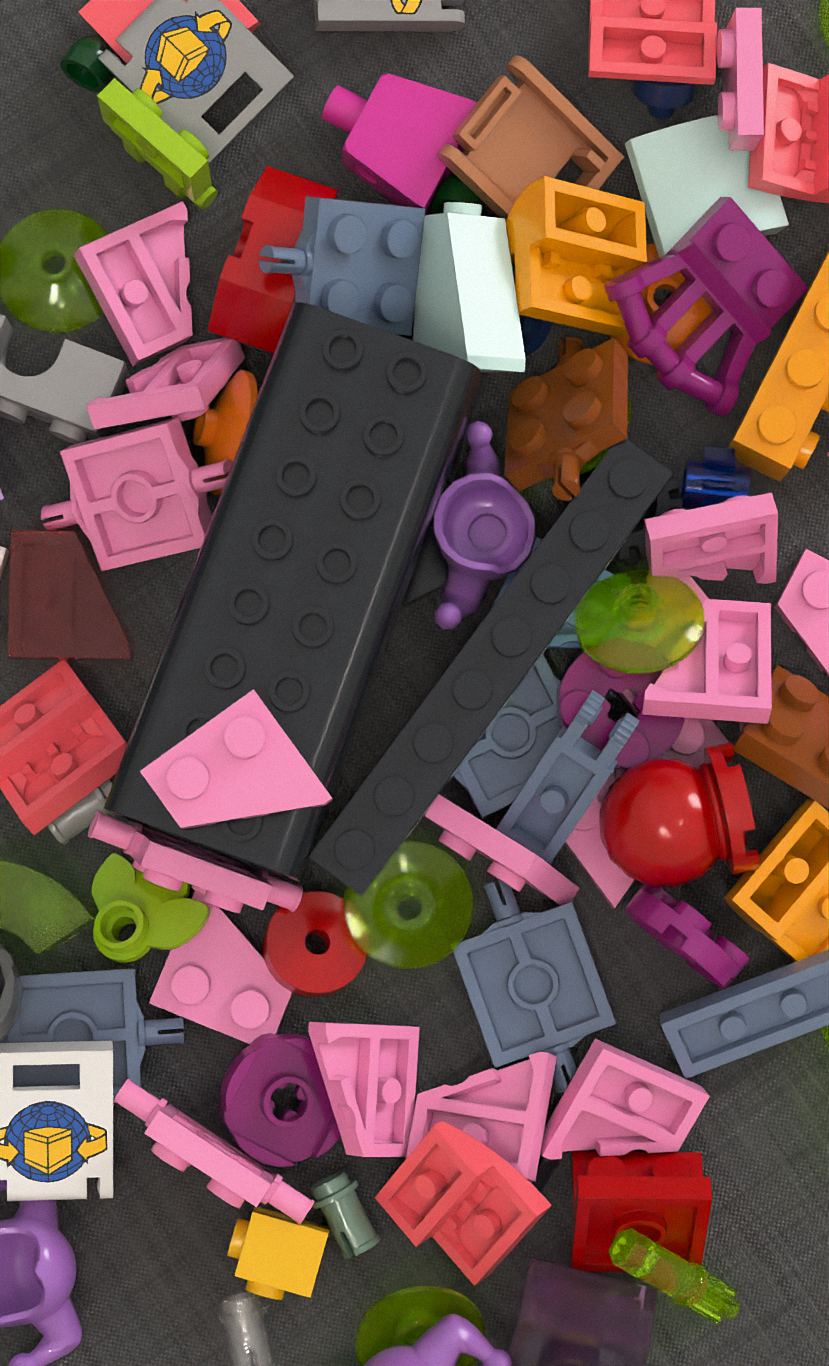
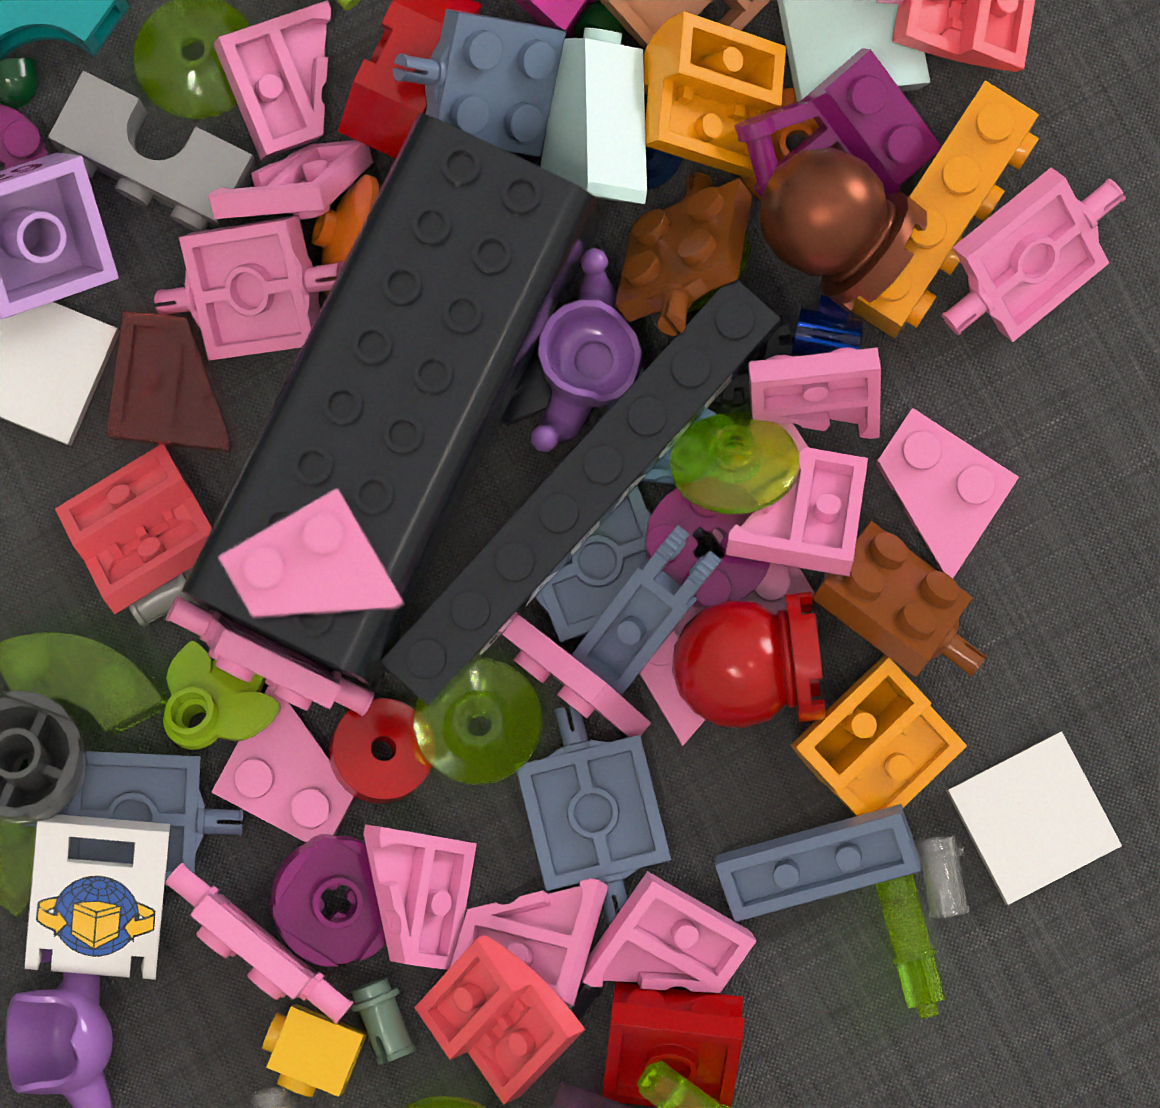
camera: 15 degrees right, 0 degrees up
(686, 934) = (749, 777): magenta plate -> none
(717, 371) = (834, 221): none -> copper tile

